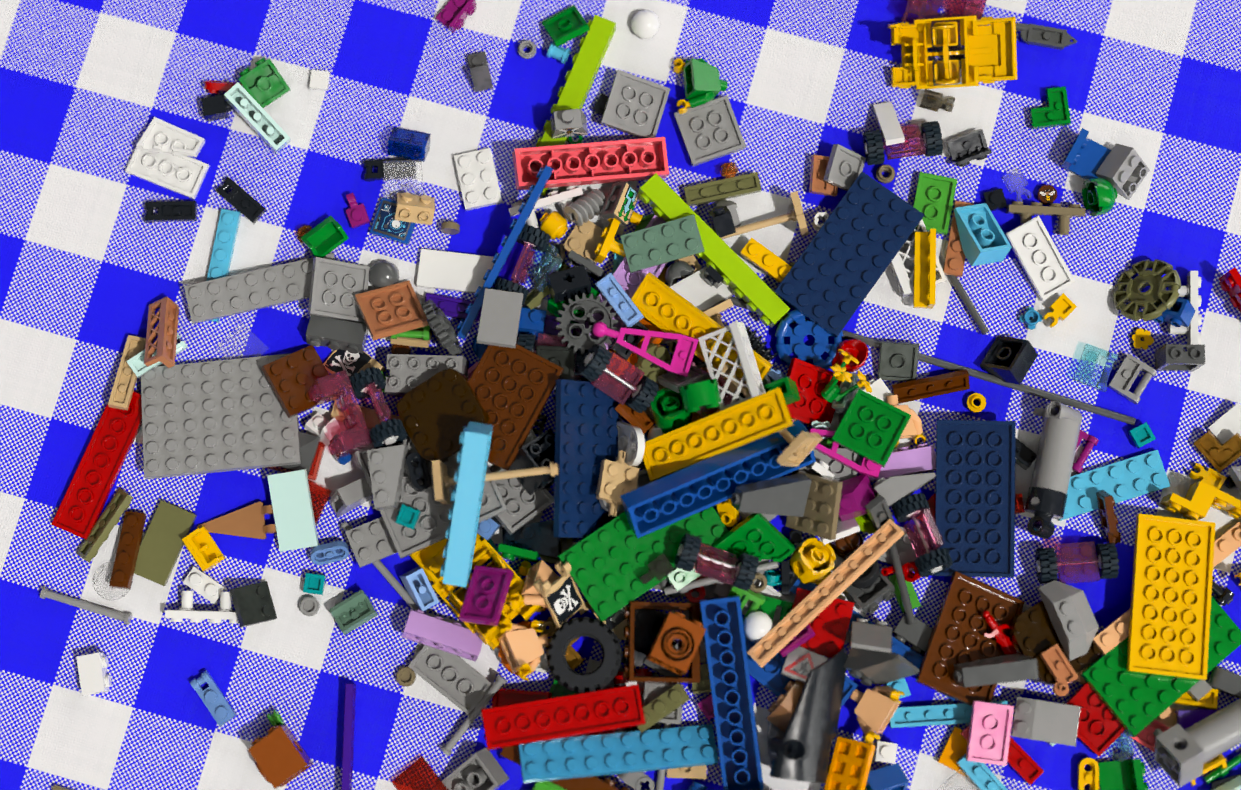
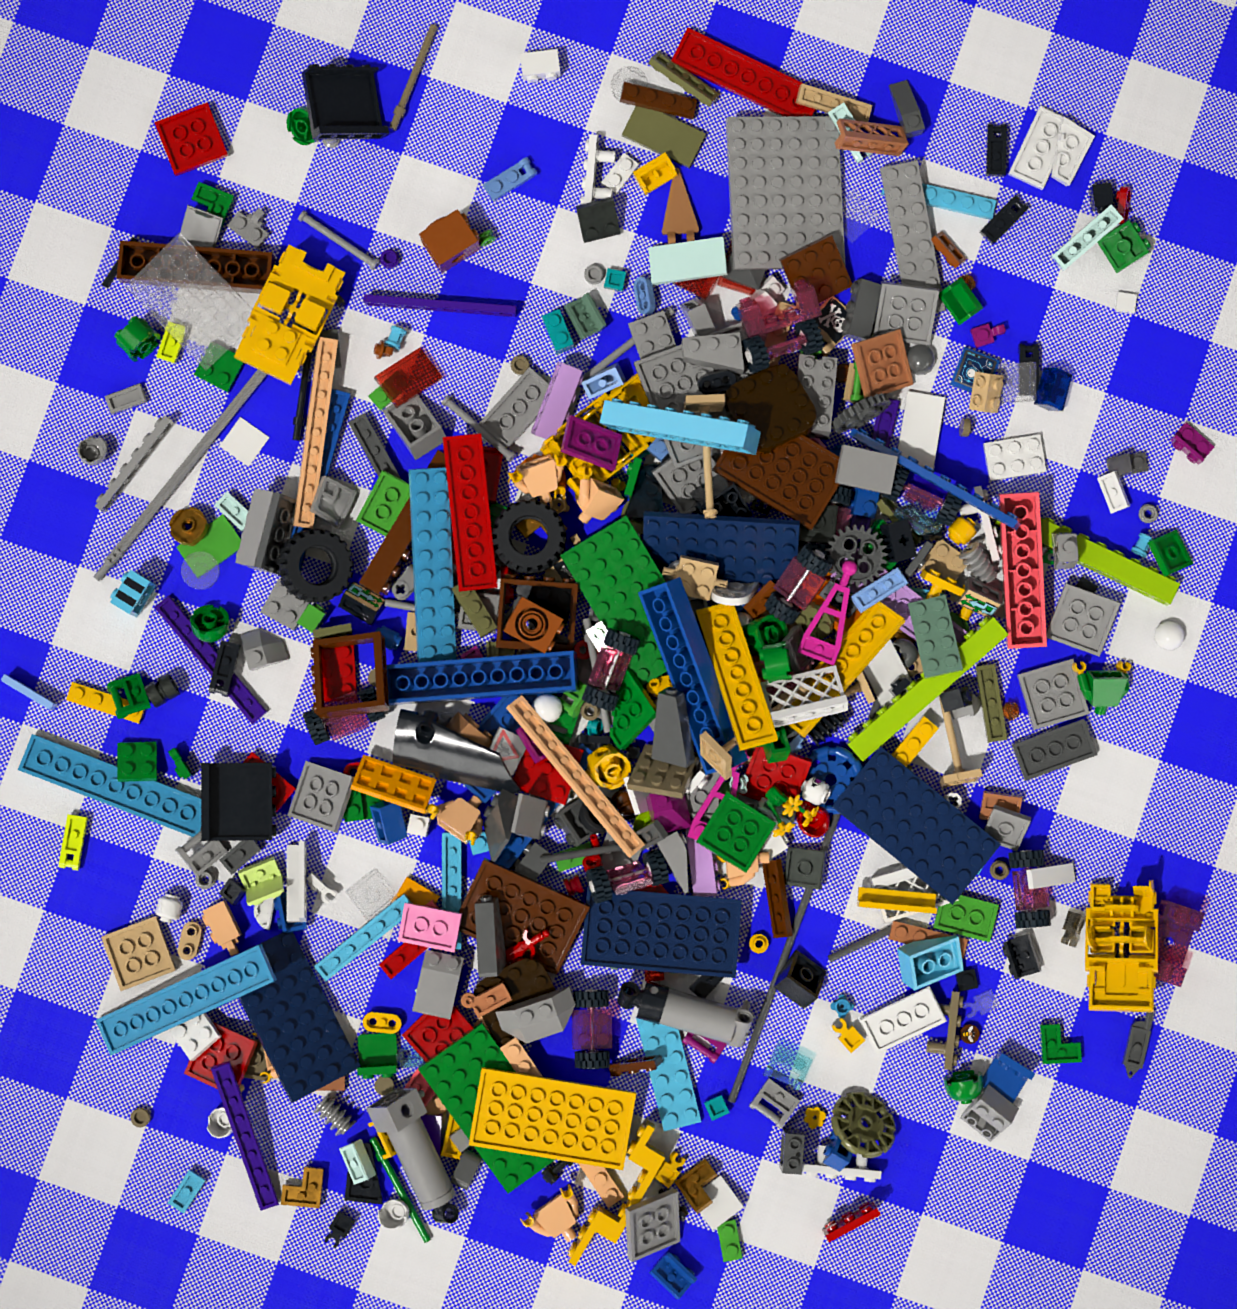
camera: 85 degrees right, 5 degrees up
(45, 593) = (592, 98): light grey bar -> none
(131, 300) = (906, 109): none -> dark grey slope
(272, 252) = (948, 249): none -> dark orange plate
(370, 639) = (557, 332): none -> teal brick
(408, 517) = (673, 371): teal tile -> none
(507, 82) = (1113, 492): none -> white plate
(562, 595) = (586, 518): flag -> none
(657, 568) = (608, 612): clear smoke plate -> none
(764, 127) = (1054, 749): none -> dark grey plate
(822, 353) = (815, 791): none -> white head
(933, 590) = (573, 885): none -> dark red wheel
(1153, 771) = (384, 1085): none -> dark tan tile

